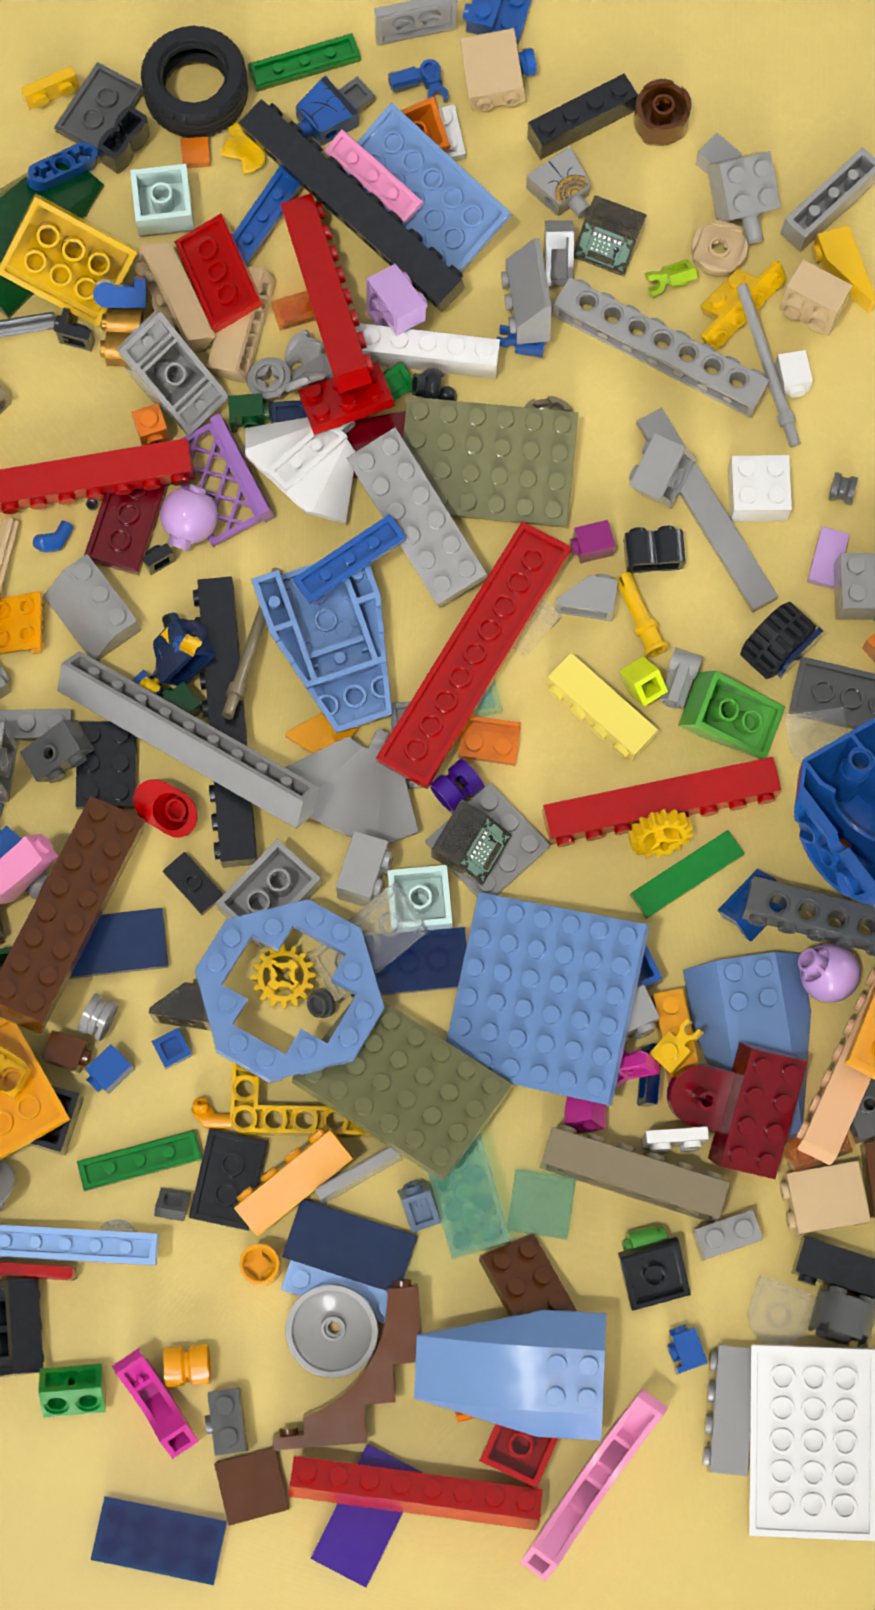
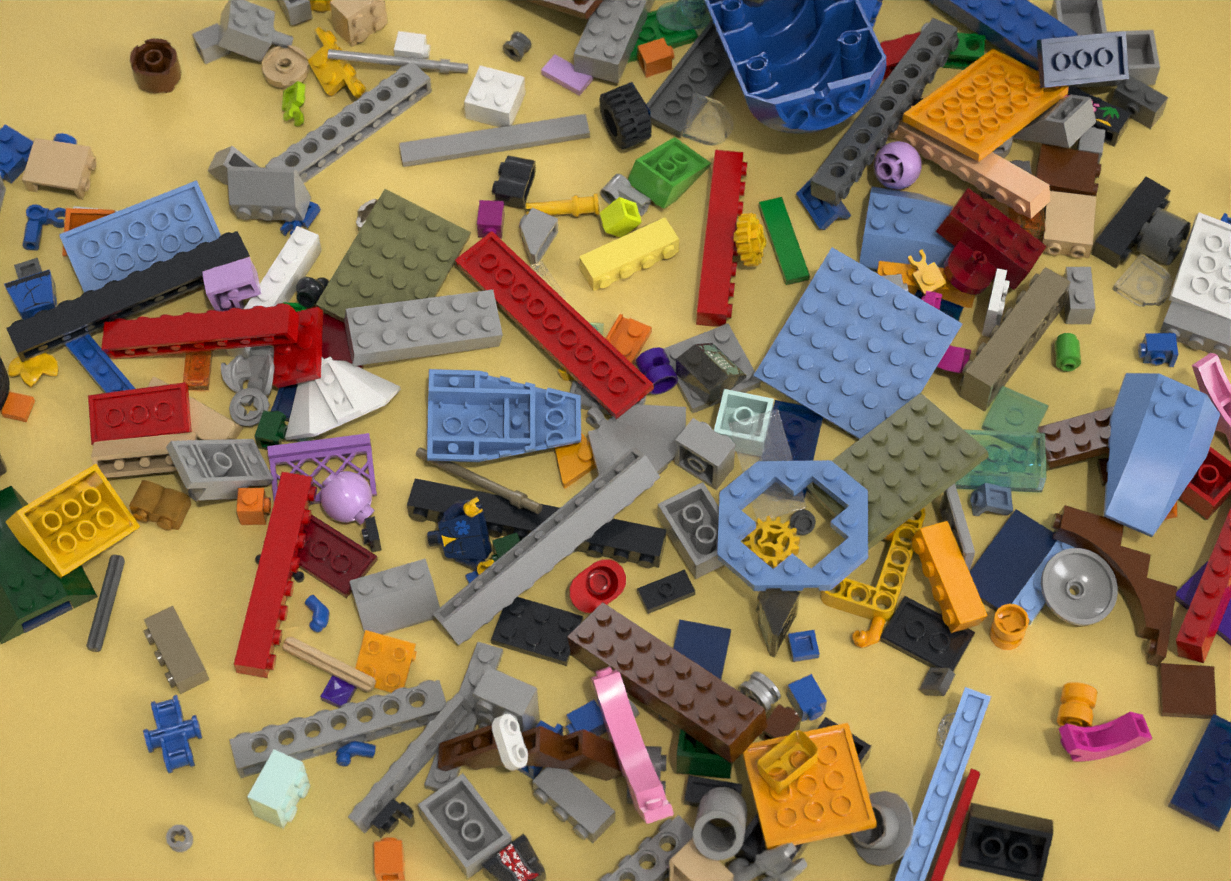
camera: 70 degrees left, 15 degrees down
(57, 751) = (515, 655): dark grey brick -> none
(72, 1390) = (1075, 800): green brick -> none
(73, 335) = (140, 545): black bracket -> none
(121, 295) = (127, 488): blue leg -> none
(139, 1160) = (890, 700): green tile -> none
(162, 200) = (52, 437): light aqua brick -> none
(226, 1421) = (1131, 689): dark grey brick -> none
(349, 559) = (442, 378): blue plate -> none
(374, 176) = (113, 269): bright pink tile -> none
(561, 184) = (181, 152): light grey torso -> none
(582, 116) = (130, 121): black brick -> none
(609, 235) = (241, 128): clear smoke slope -> none
(654, 1273) = (1094, 351): black tile -> none
(662, 470) = (457, 148): light grey brick -> none

